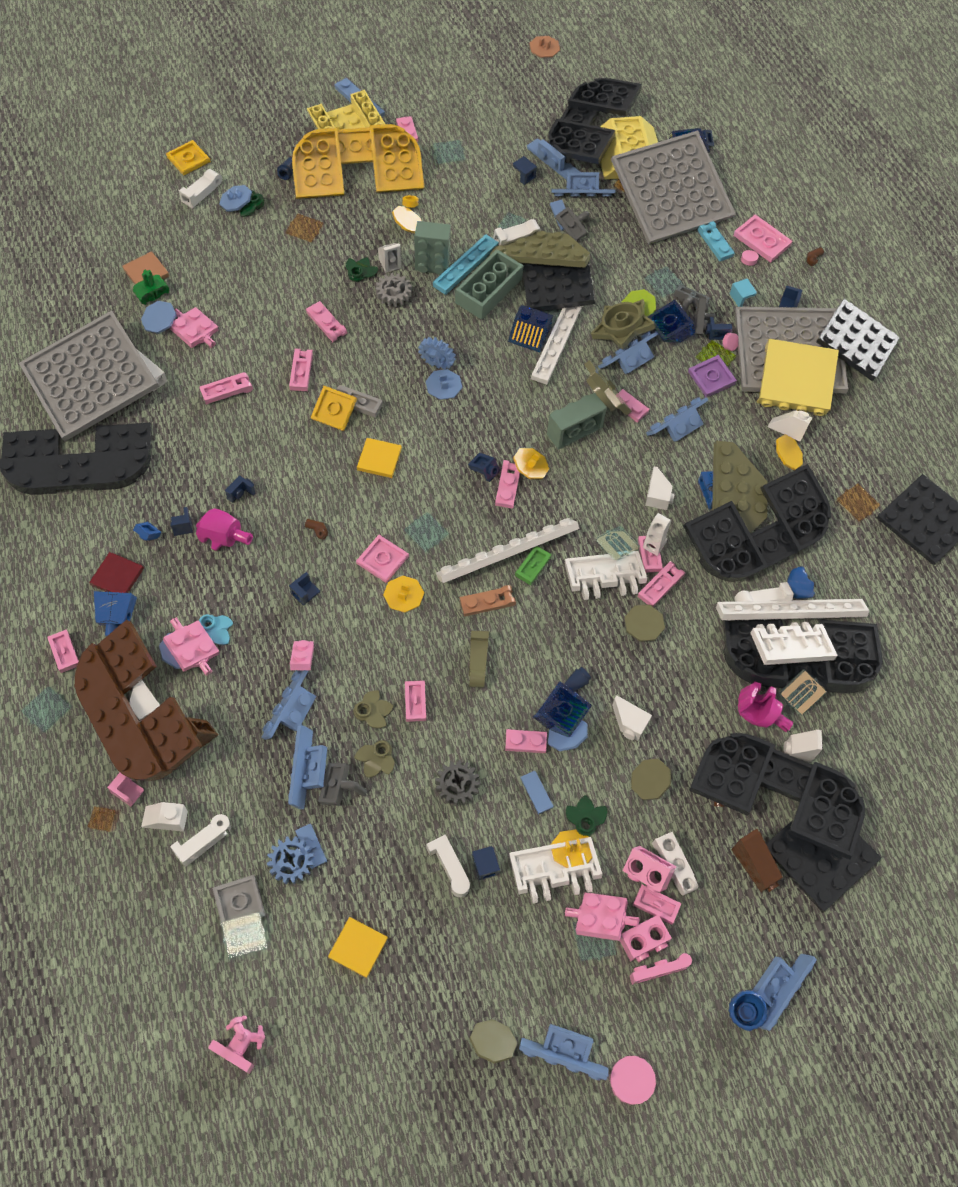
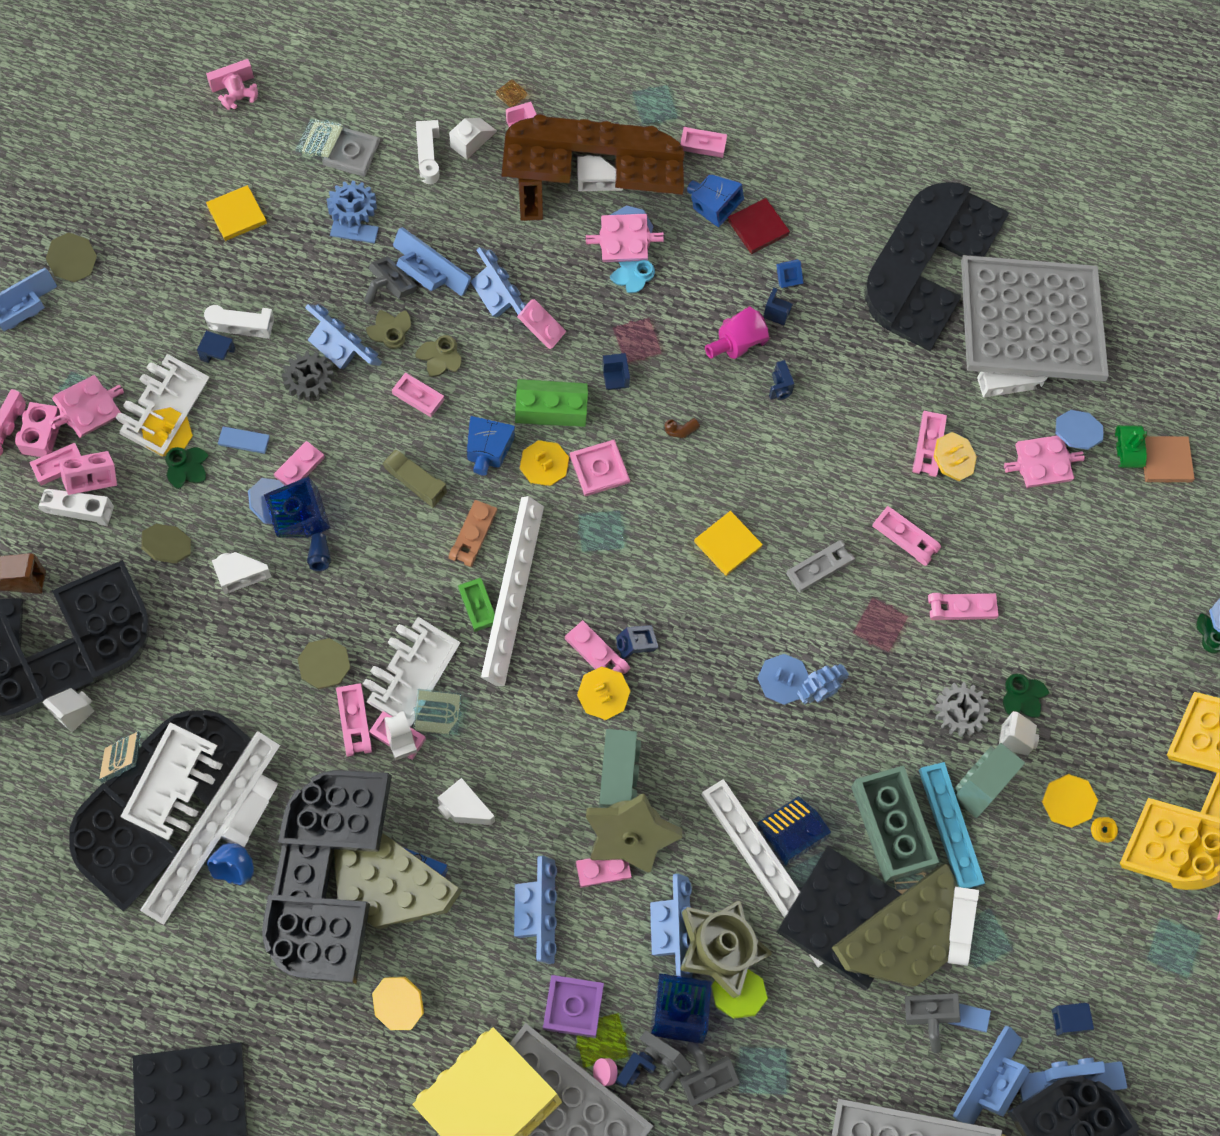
camera: 125 degrees right, 5 degrees up
(225, 370) = (955, 456): none -> yellow piece
(267, 596) = (637, 340): none -> clear pink piece
(304, 227) = (1136, 675): clear orange piece -> none
(333, 408) = (825, 533): yellow tile -> none
(356, 613) = (551, 403): none -> bright green slope
(370, 356) = (880, 624): none -> clear pink piece
(414, 785) = (336, 342): none -> medium blue bracket
(419, 630) = (488, 443): none -> blue torso
(762, 709) = (140, 702): dark pink piece -> none
(792, 424) = (432, 1038): white slope -> none
(858, 502) = (276, 1039): clear orange piece -> none

